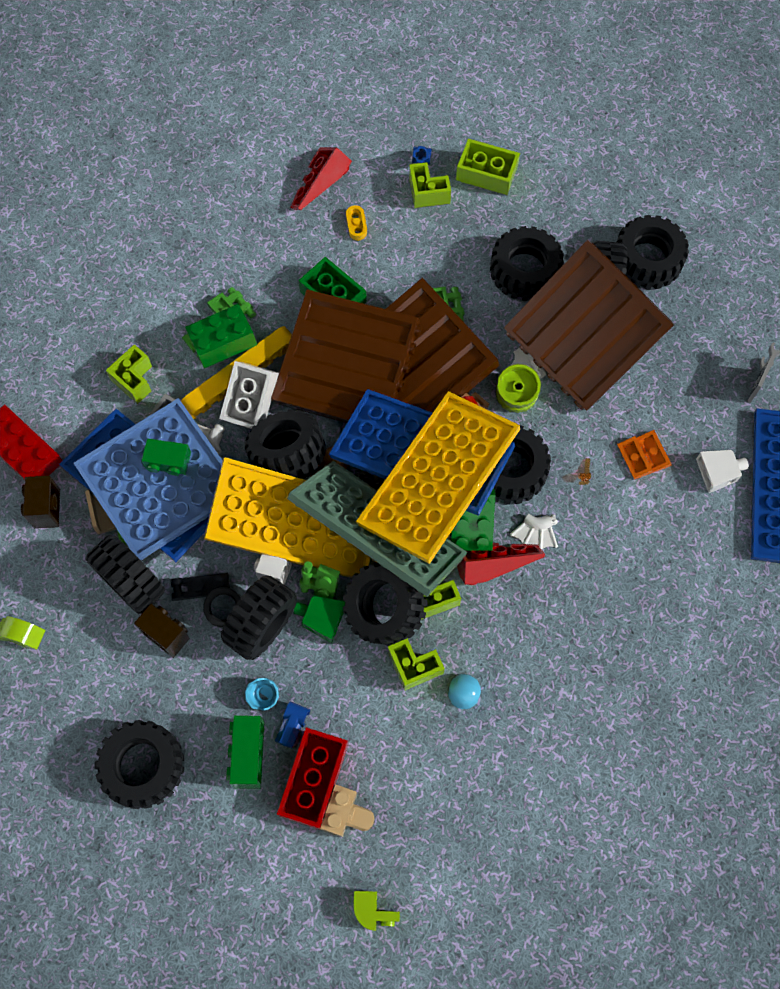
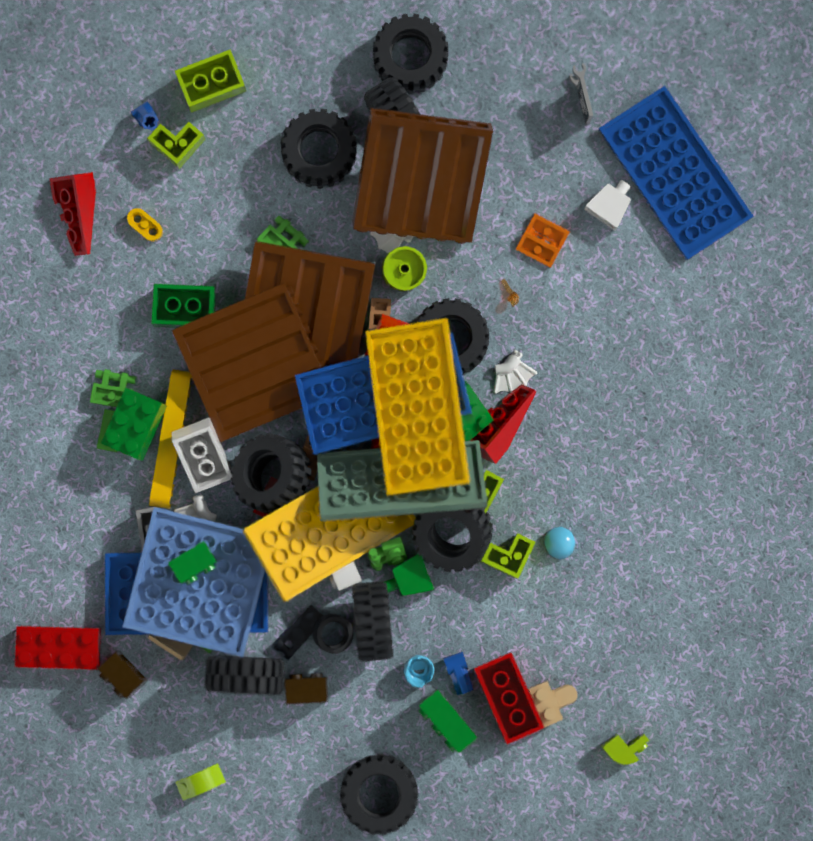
camera: 45 degrees left, 15 degrees up
(128, 373) = (84, 517): lime brick -> none

